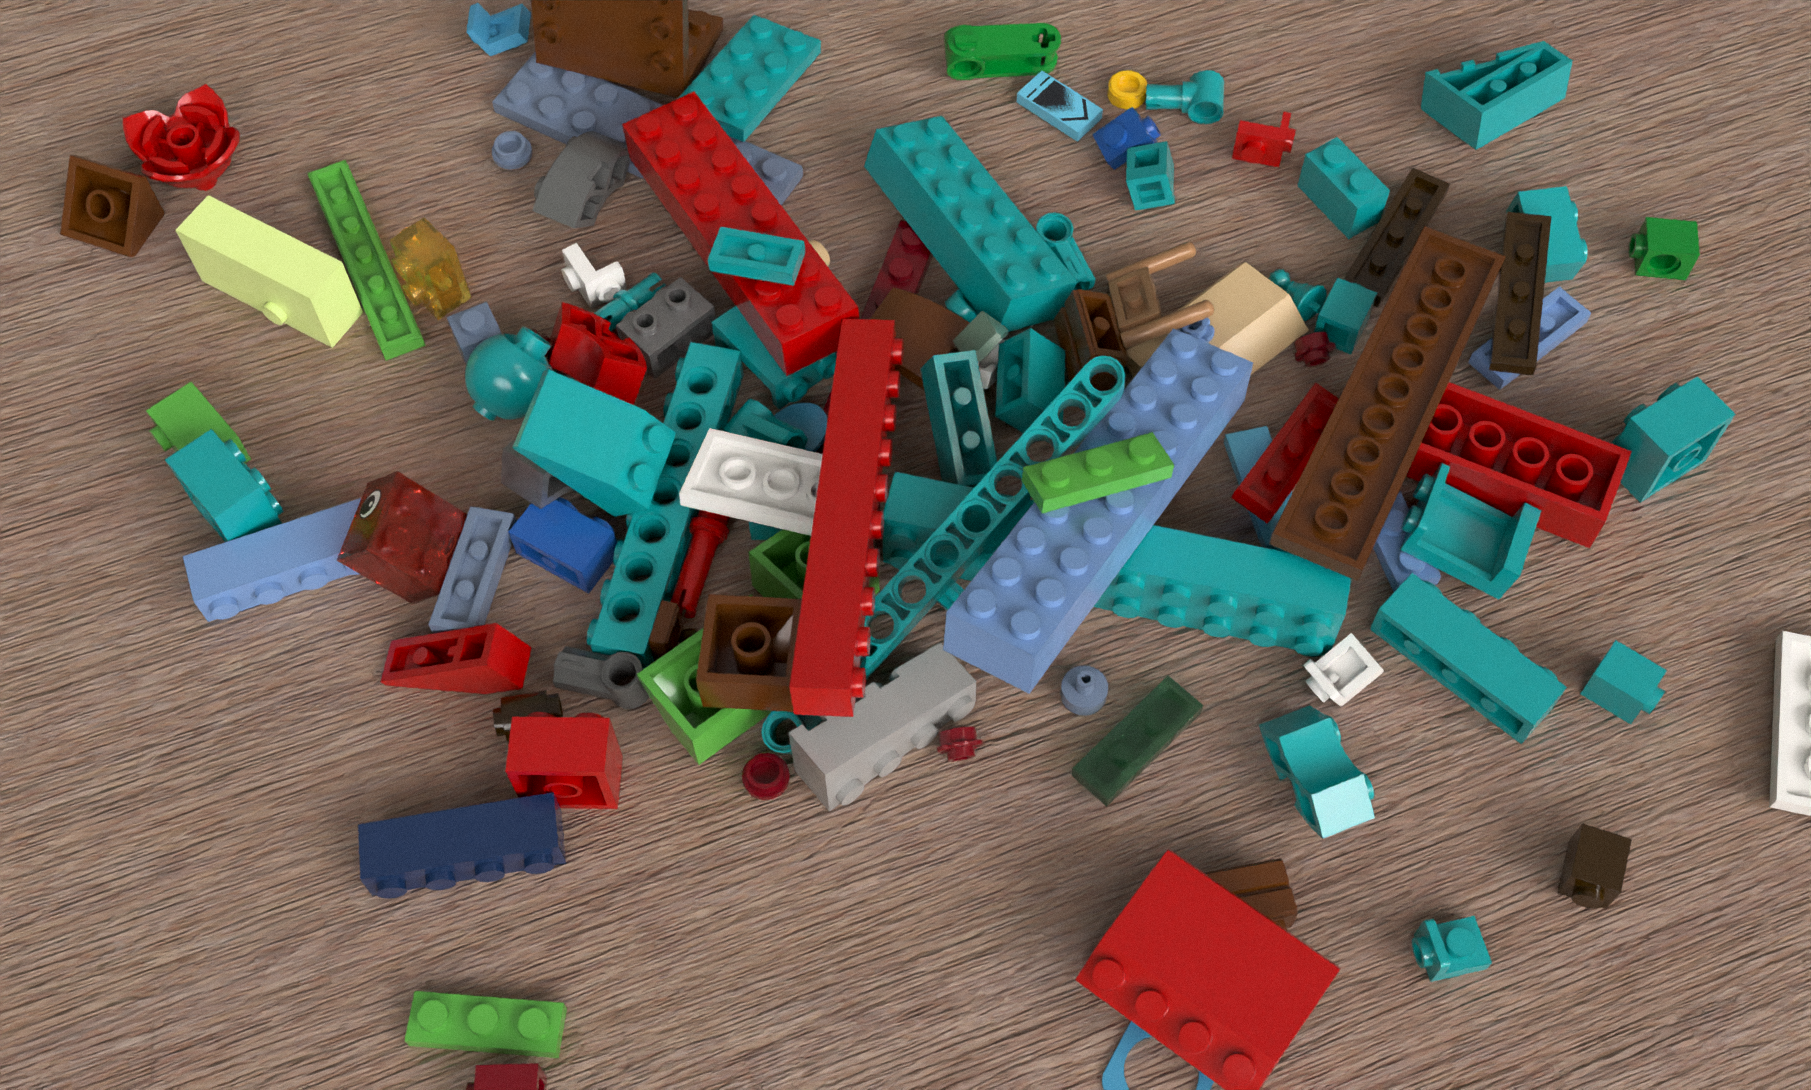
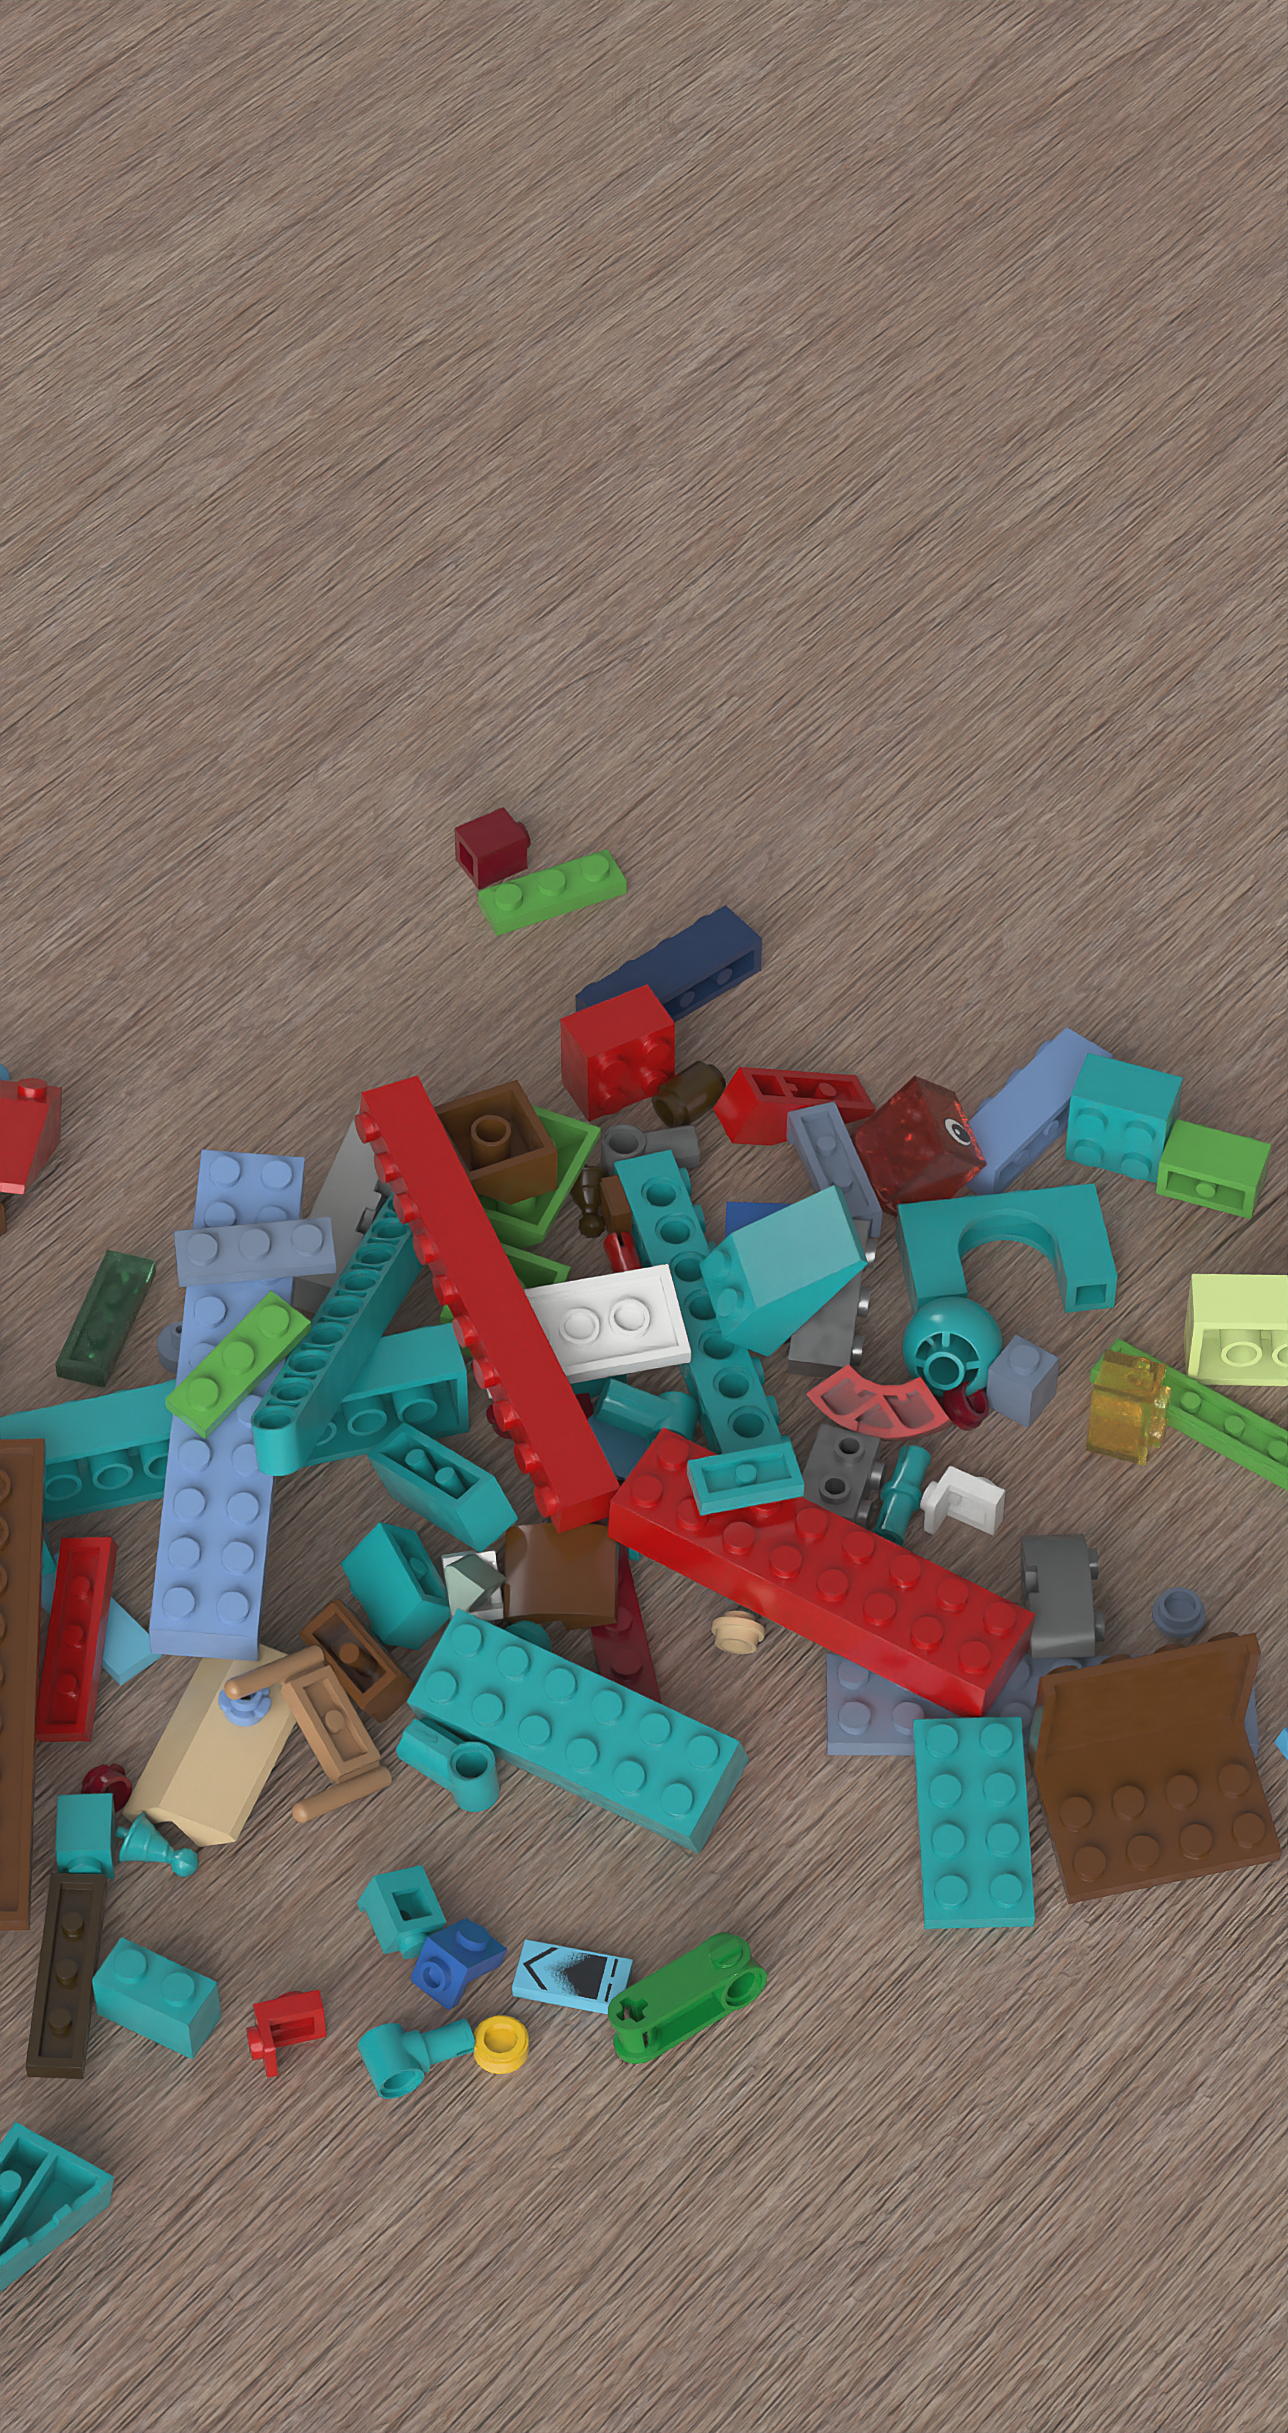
camera: 150 degrees right, 10 degrees down
(354, 417) = (1057, 1221): none -> teal arch
(1038, 542) = (254, 1251): none -> sand blue plate

